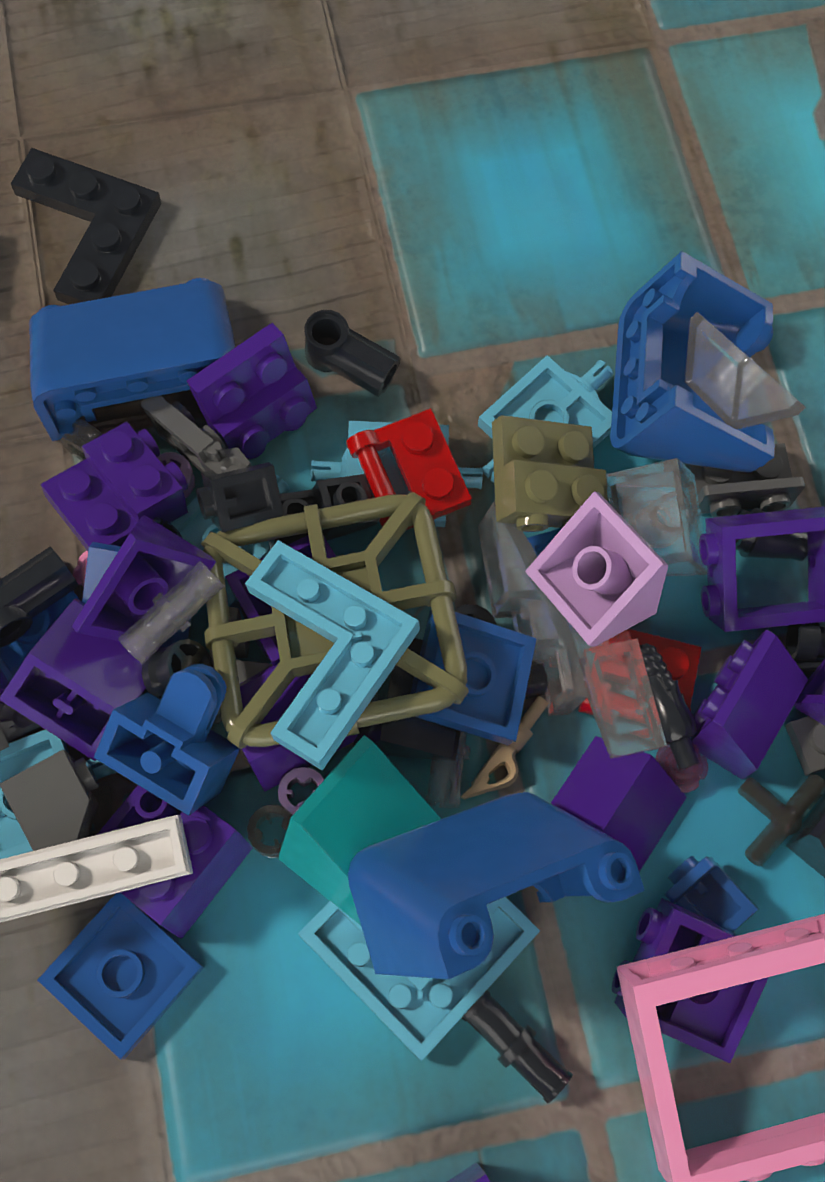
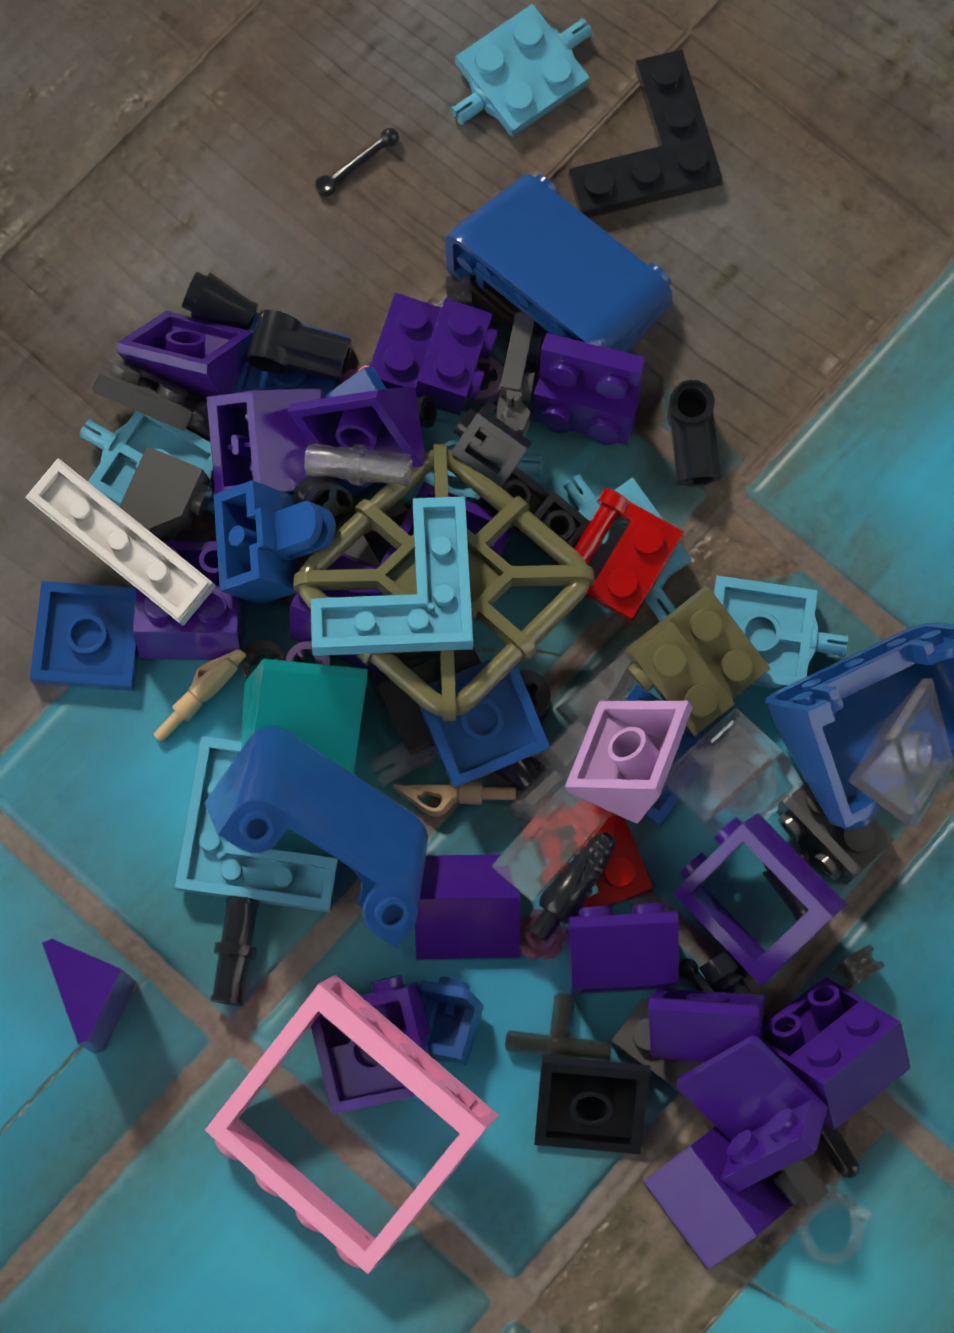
camera: 60 degrees right, 5 degrees up
(250, 892) = (206, 683): none -> tan hand

